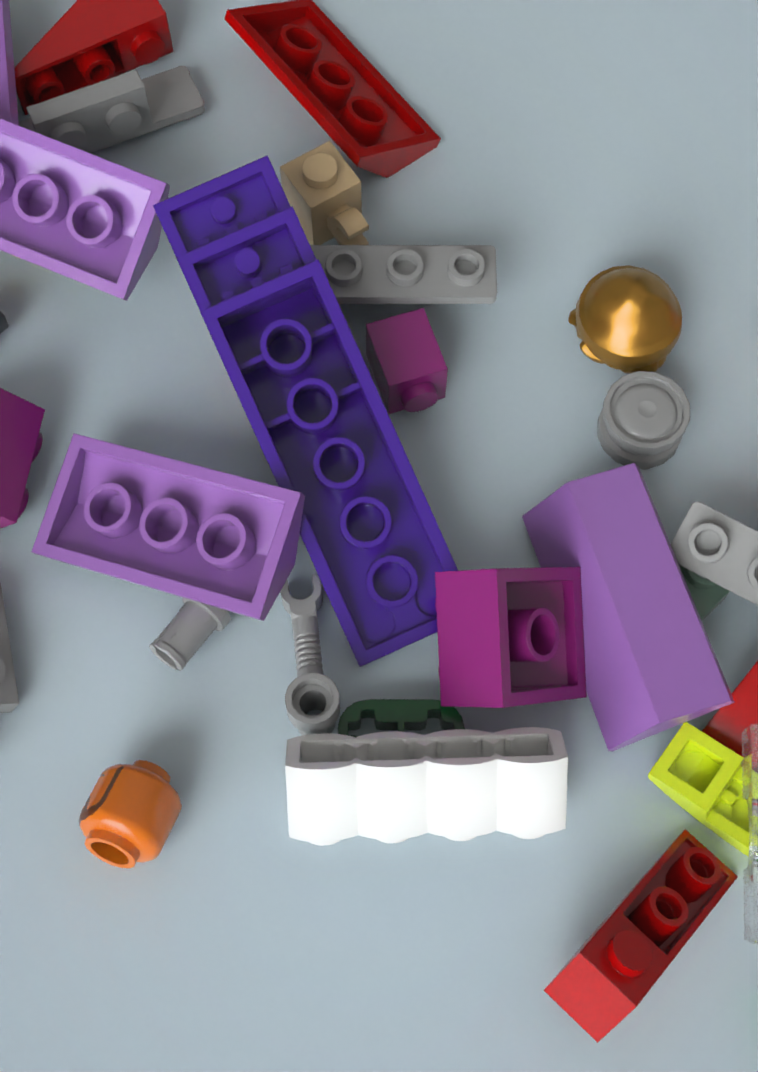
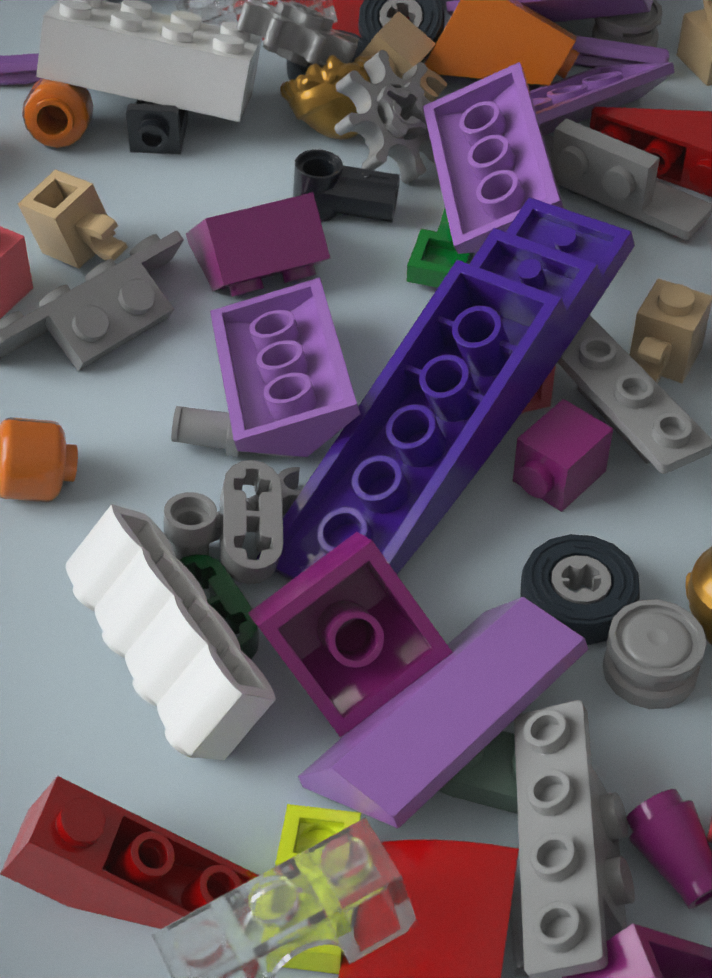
camera: 60 degrees right, 20 degrees down
(93, 315) = (434, 255): none -> green plate
(339, 650) = (264, 521): none -> light grey beam
(557, 407) = (576, 562): none -> black bush

